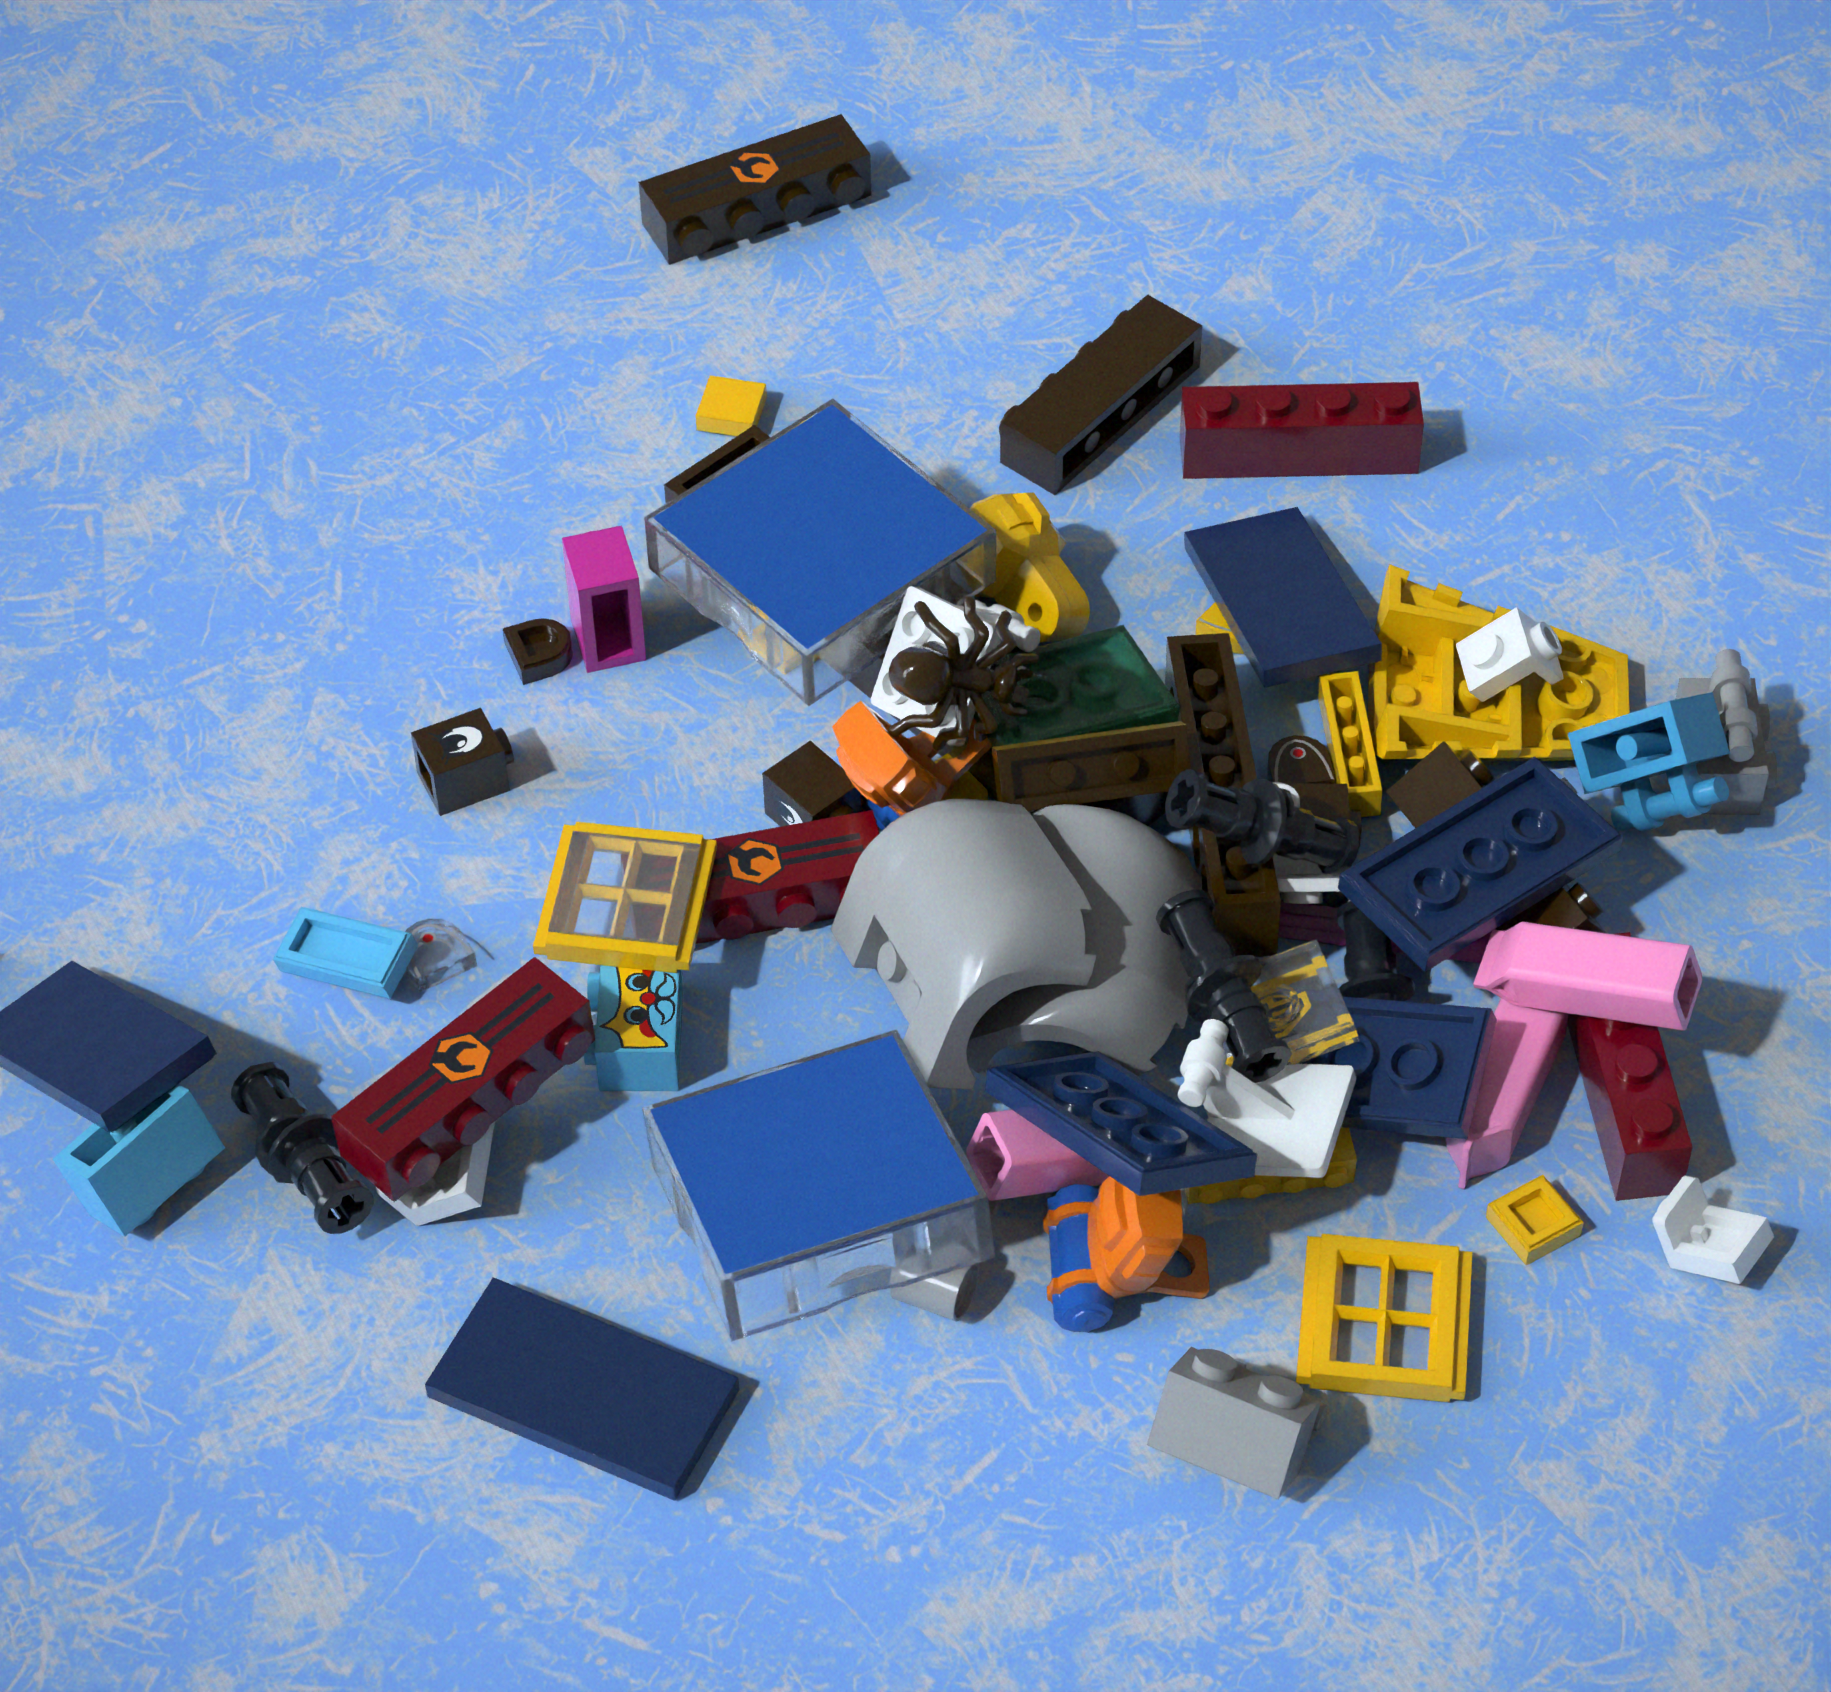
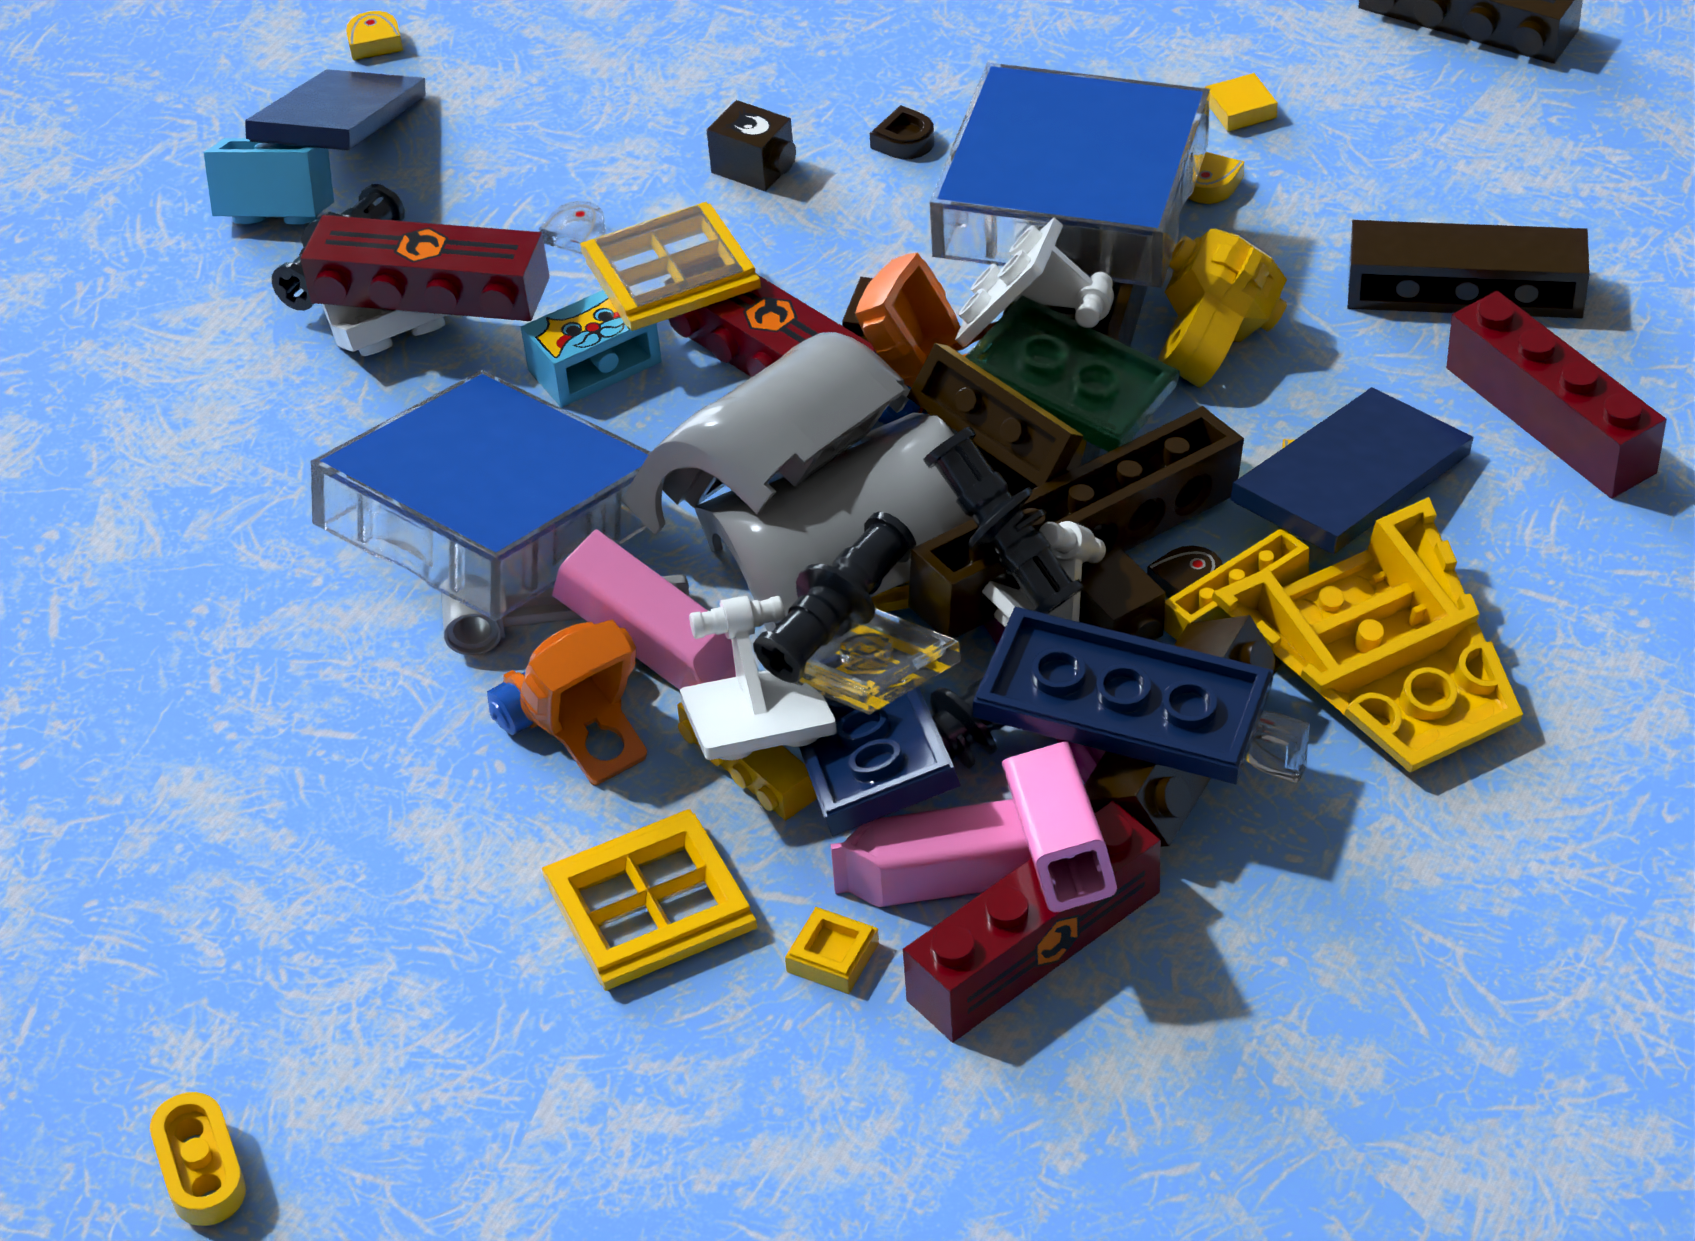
camera: 60 degrees right, 5 degrees down
(345, 952) = (533, 184): medium azure tile -> none
(583, 1388) = (247, 491): dark blue tile -> none
(604, 598) = (937, 108): dark pink brick -> none
(947, 677) = (971, 270): dark brown animal -> none
(1120, 1123) = (633, 601): dark blue tile -> none
(1235, 1421) = (451, 843): light grey brick -> none
(1509, 652) = (1421, 620): white bracket -> none
(1652, 743) = (1380, 755): dark azure brick -> none
(1709, 1237) = (895, 1062): white bracket -> none
(1745, 726) = (1480, 821): light grey brick -> none

